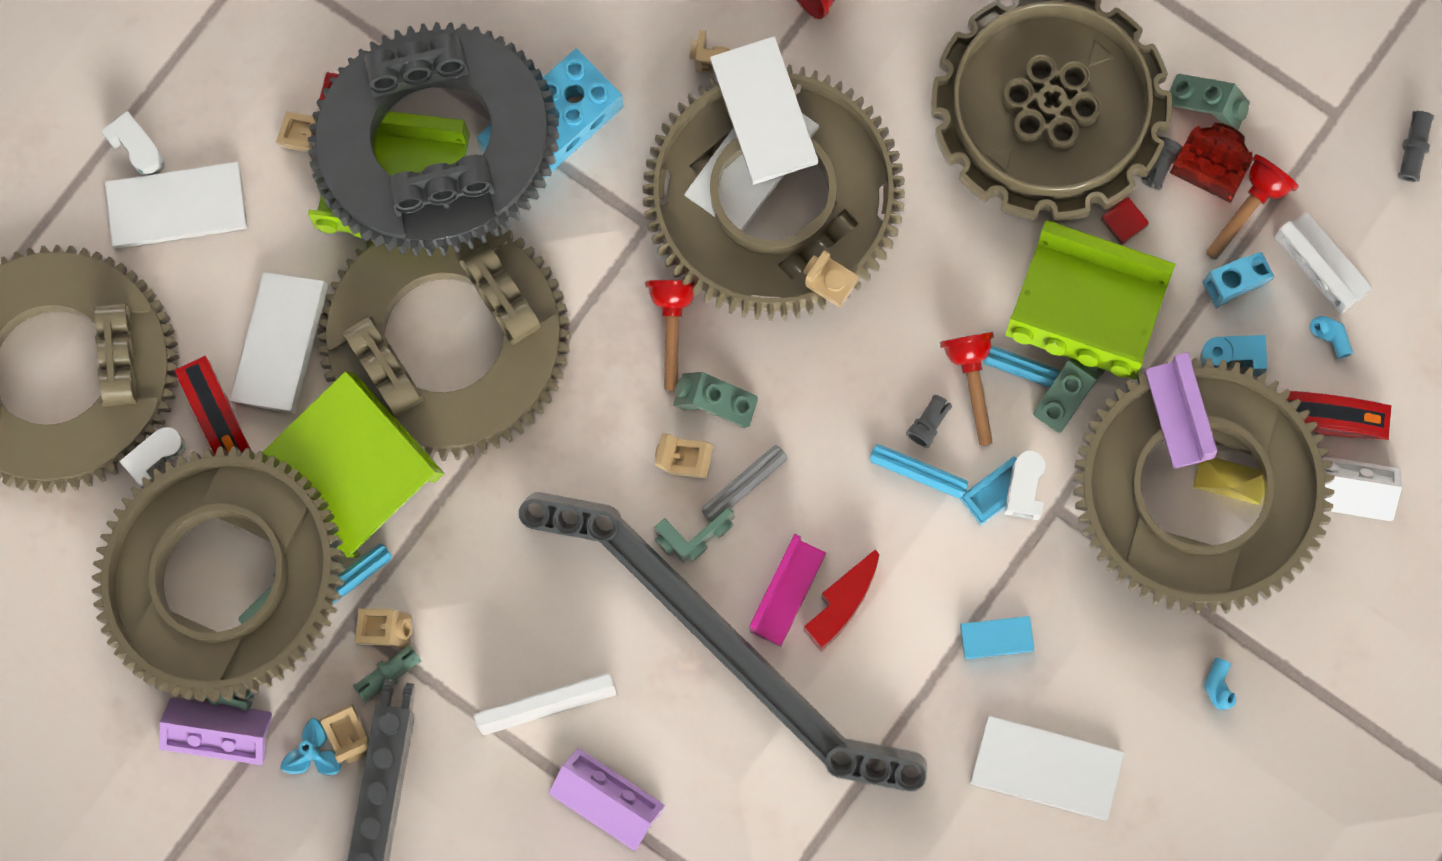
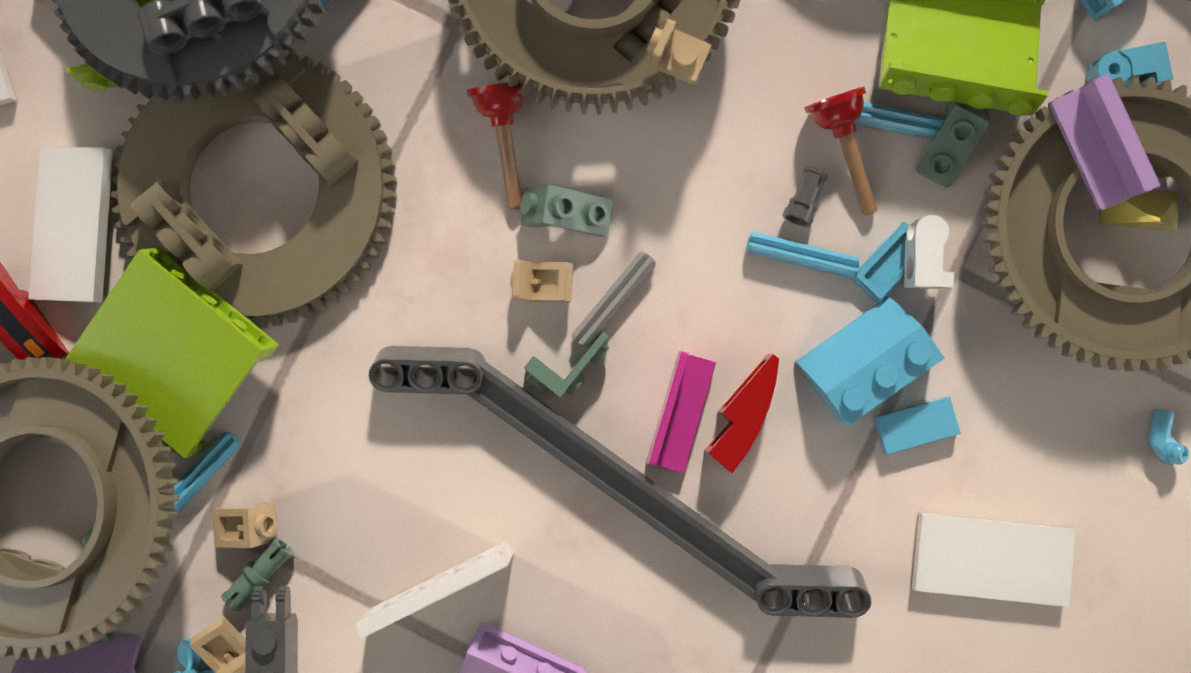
camera: 15 degrees left, 10 degrees up
(961, 572) = (869, 360): none -> medium azure slope

